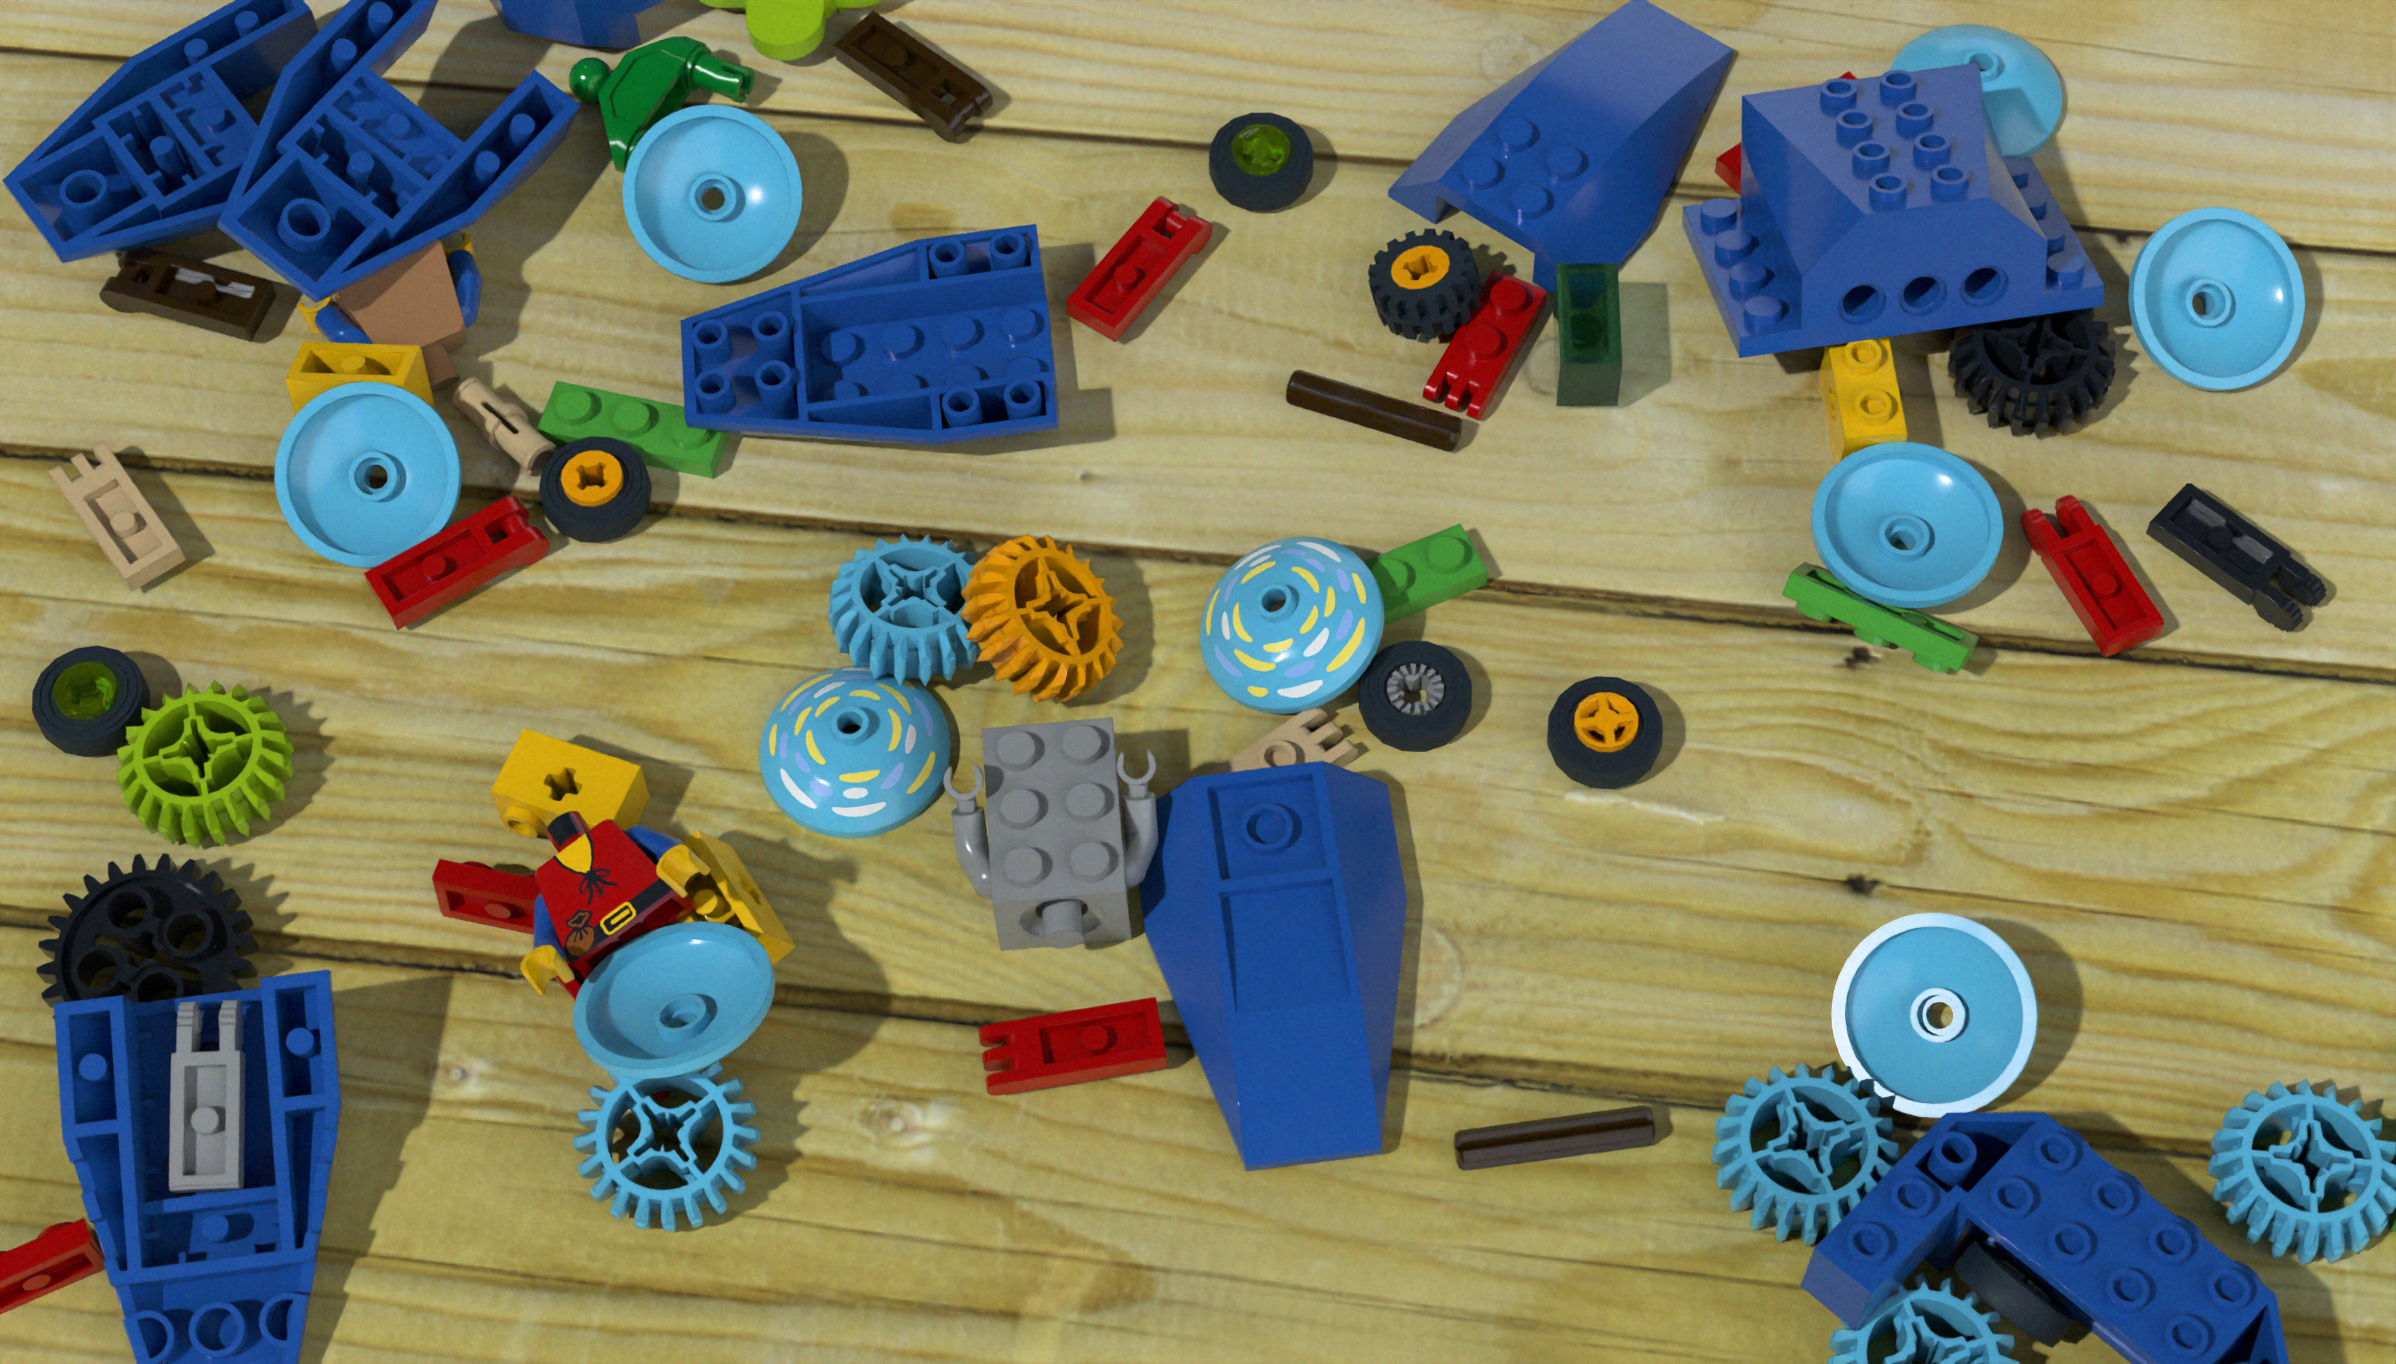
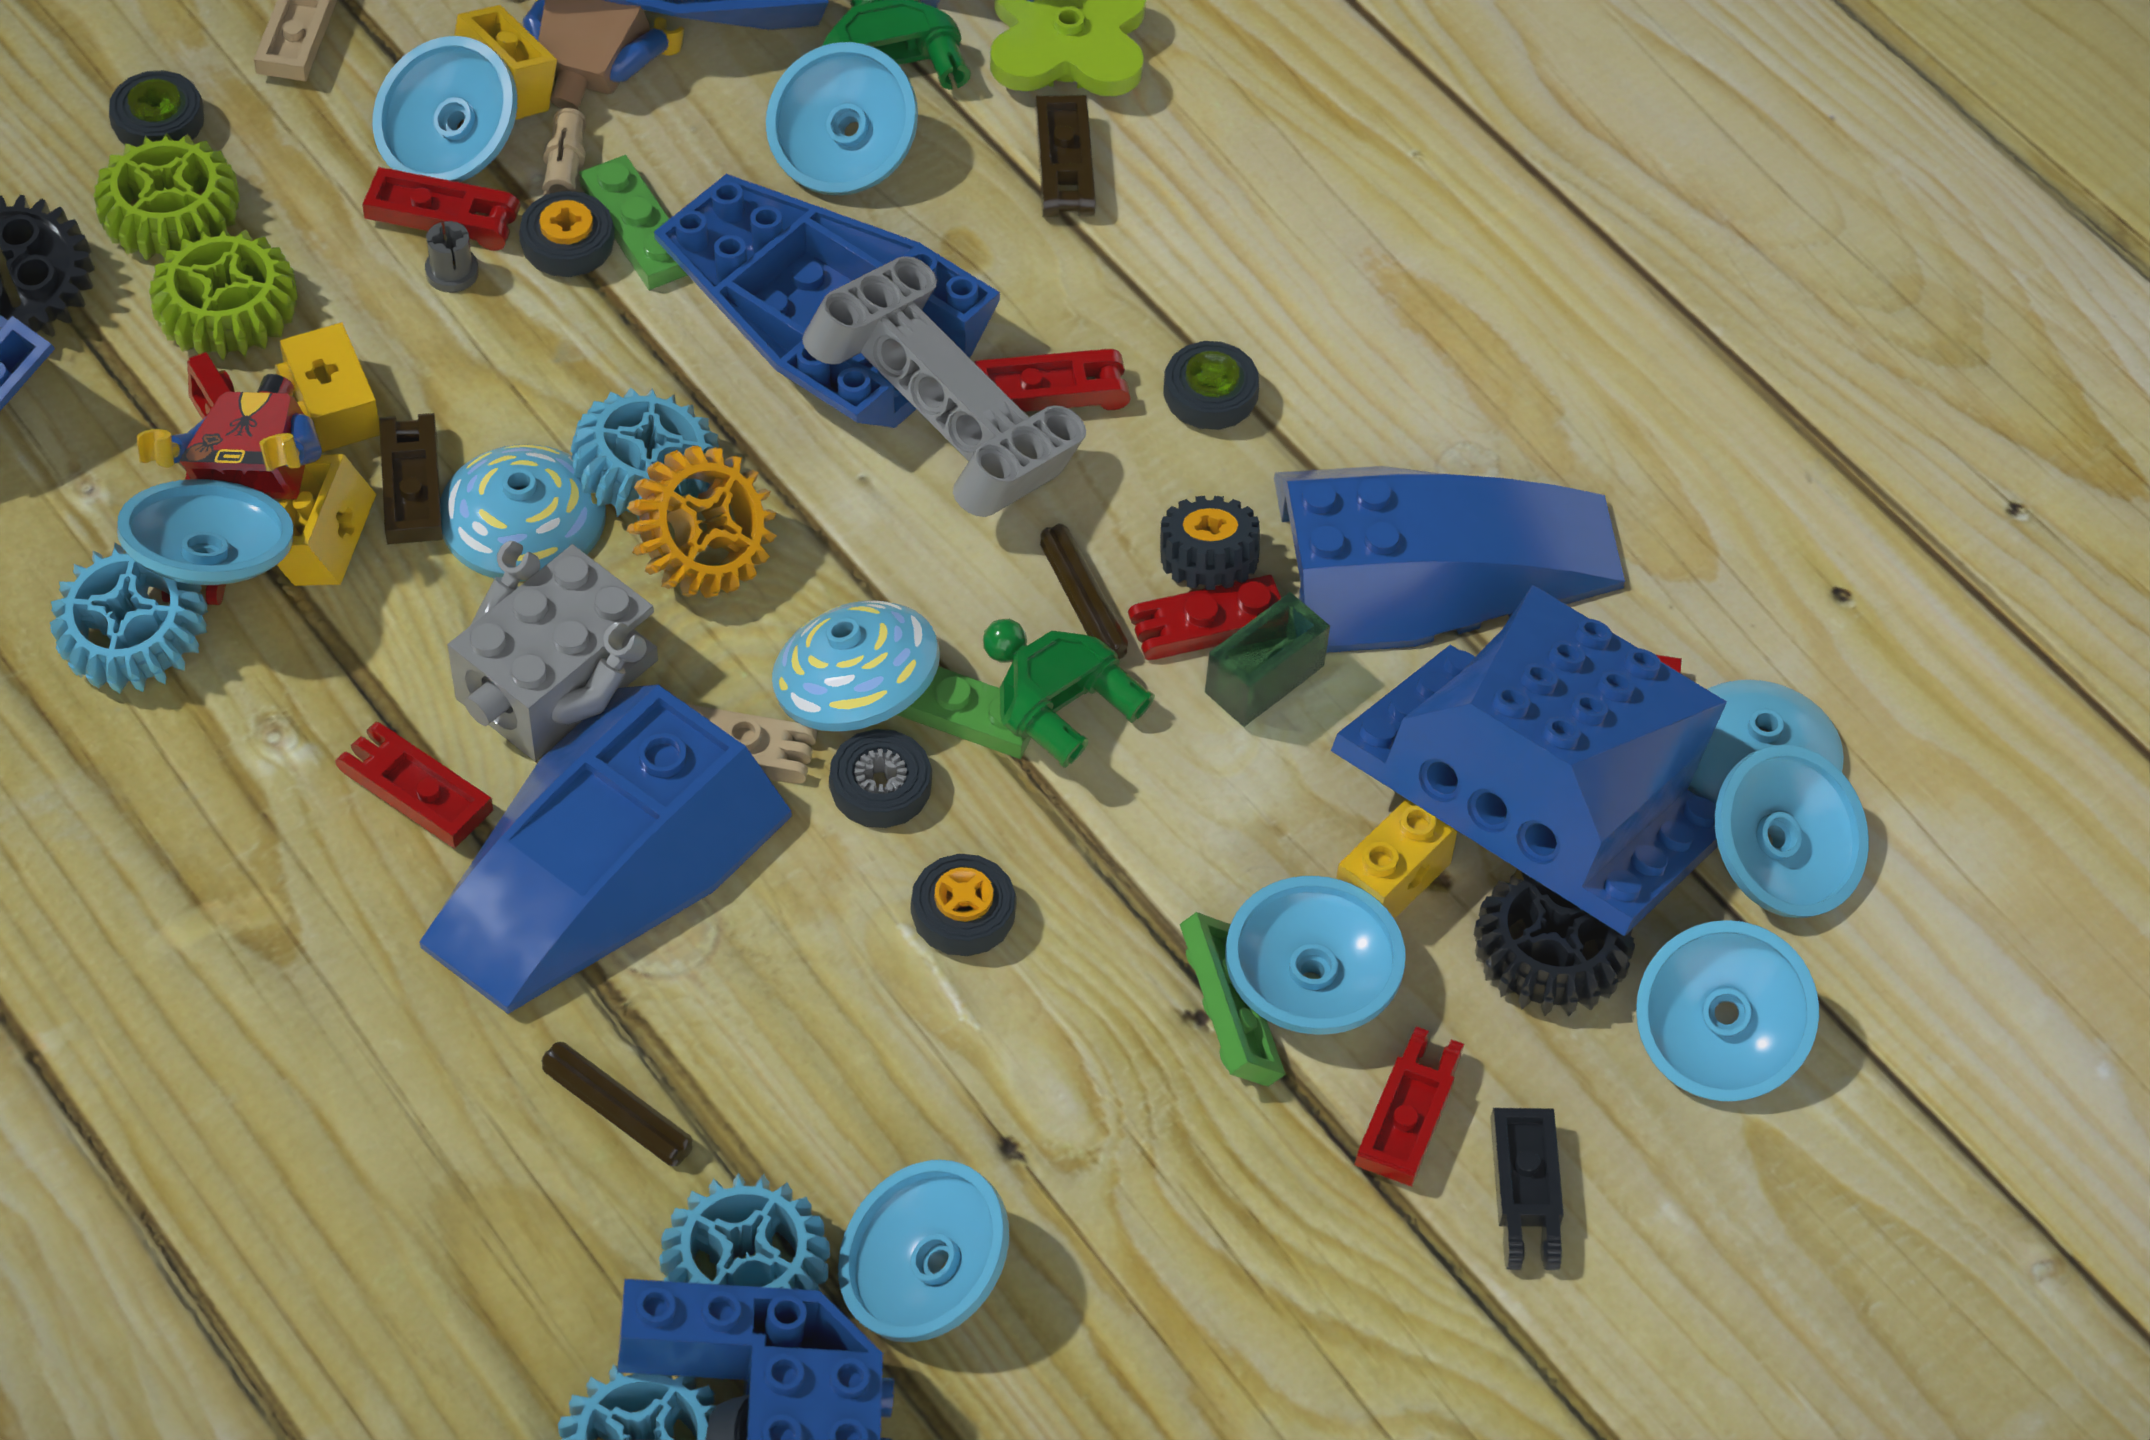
camera: 40 degrees right, 5 degrees down
(341, 829) = (223, 293): none -> lime gear
(524, 599) = (439, 264): none -> dark grey bush
(736, 806) = (410, 479): none -> dark brown plate
(1198, 345) = (886, 324): none -> light grey beam
(1455, 502) = (1051, 676): none -> green connector
(2092, 128) = (1813, 826): none -> medium azure dish

